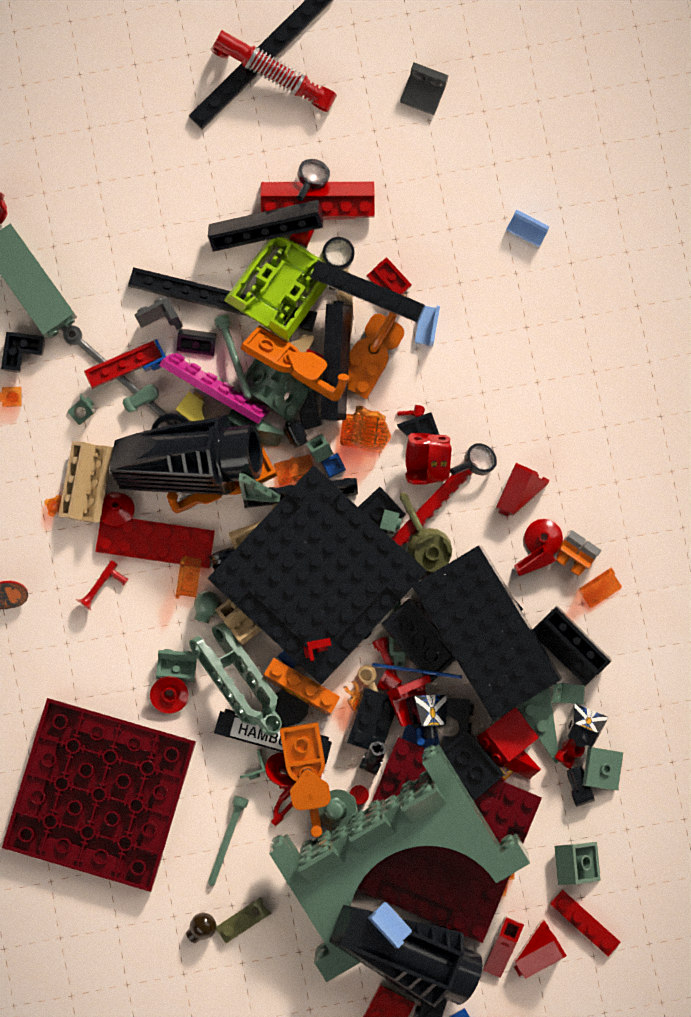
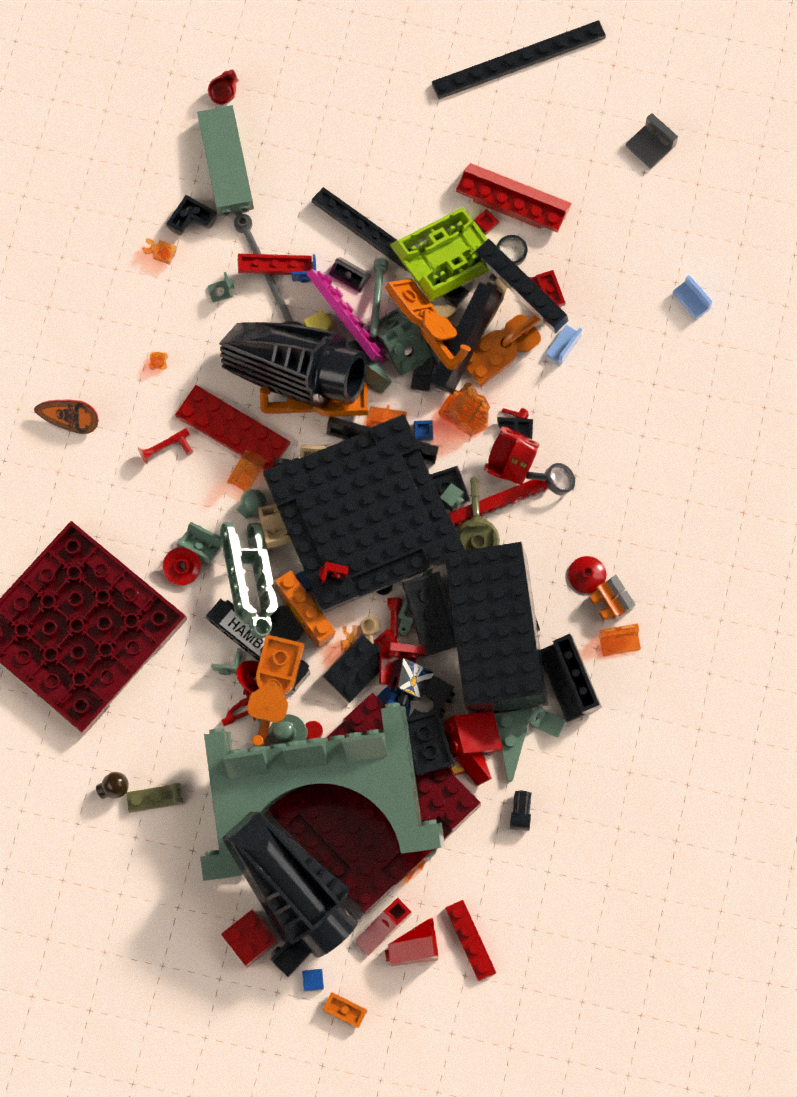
camera: 25 degrees right, 10 degrees down
(85, 482) = (193, 350): tan brick -> none
(117, 516) = (210, 385): red dish -> none
(142, 397) = (285, 298): sand green piece -> none
(160, 308) = (325, 231): dark grey bracket -> none
(239, 804) = (199, 692): sand green piece -> none
(250, 56) = (508, 51): red piece -> none
(256, 491) = (340, 414): sand green wing -> none
(265, 225) = (456, 196): black brick -> none
(295, 432) = (401, 386): black brick -> none
(312, 174) = (518, 173): piece -> none
(319, 448) = (417, 408): sand green plate -> none
(373, 758) = (339, 702): black piece -> none
(390, 924) = (284, 842): light blue panel -> none
(417, 670) = (417, 639): blue piece -> none
(520, 489) = (584, 520): red slope -> none
(537, 559) = (571, 589): red slope -> none
(568, 753) = (525, 774): red plate -> none
(577, 863) = (487, 880): sand green slope -> none
(585, 725) = (551, 756): black torso -> none
(603, 768) = (550, 803): sand green plate -> none

